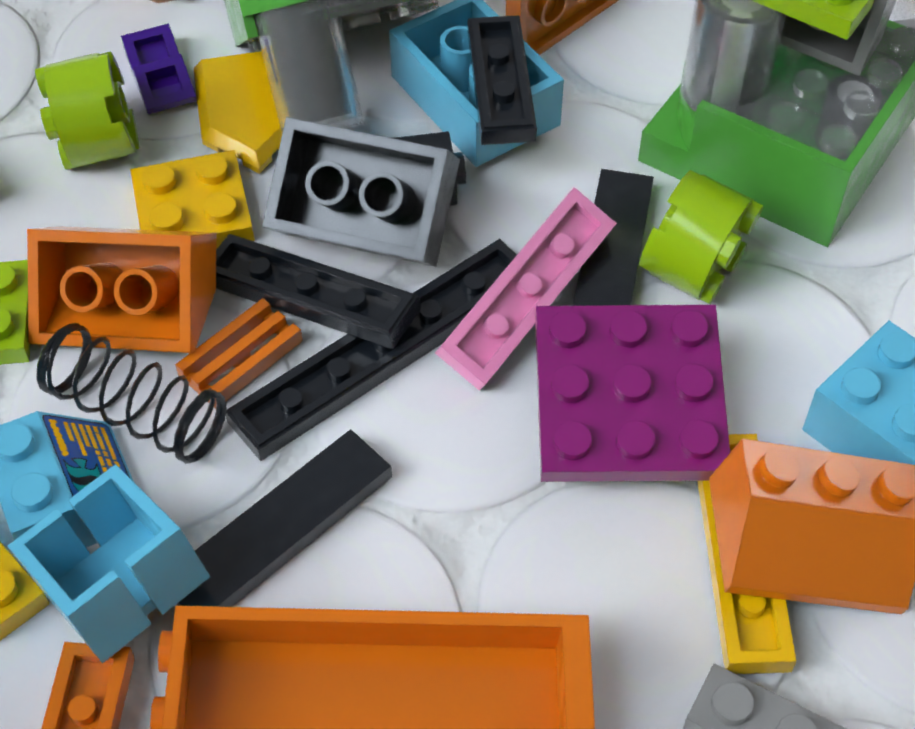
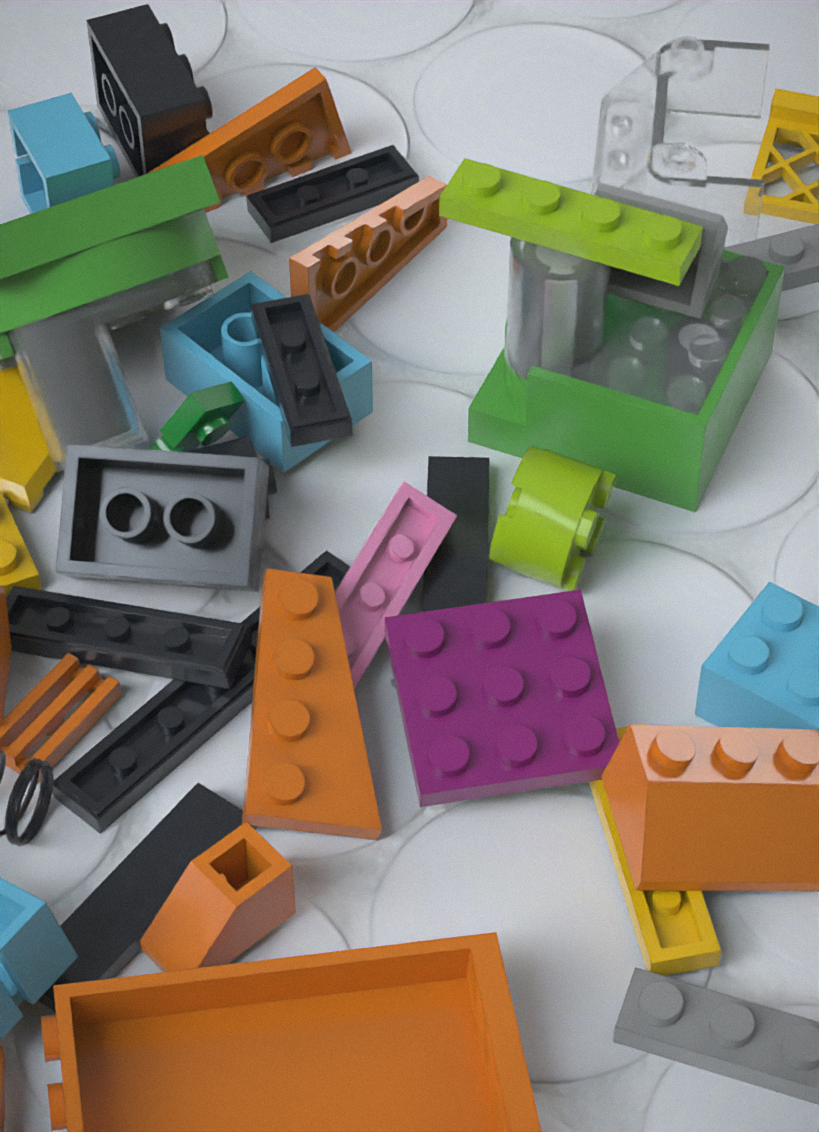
camera: 10 degrees left, 5 degrees down
(346, 548) = (222, 904): none -> orange slope
(410, 111) = (200, 419): none -> green plate
(451, 396) = (305, 725): none -> orange wing

